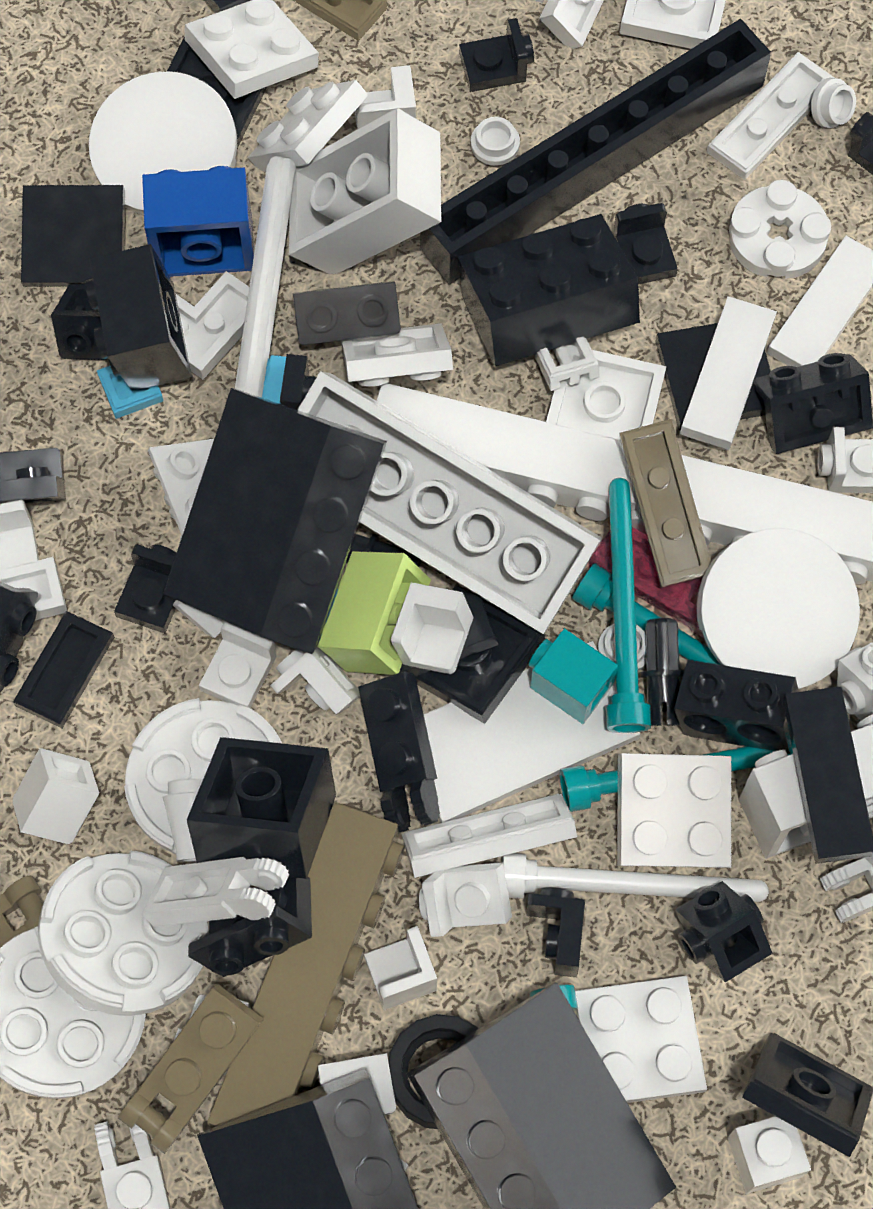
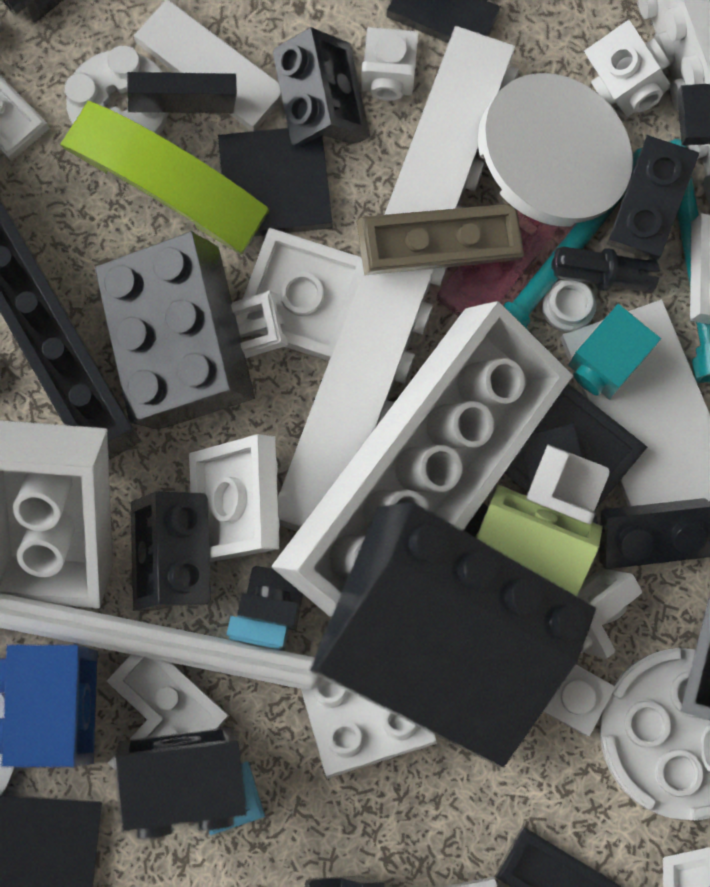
camera: 85 degrees left, 10 degrees up
(75, 325) = (145, 859): black bracket -> none
(143, 595) = (476, 783): black bracket -> none
(628, 707) = (649, 304): teal piece -> none
(645, 241) = (118, 231): black bracket -> none
(699, 270) = (166, 174): none -> lime slope
(728, 373) = (284, 166): white tile -> none
(784, 269) = (181, 92): none -> black tile

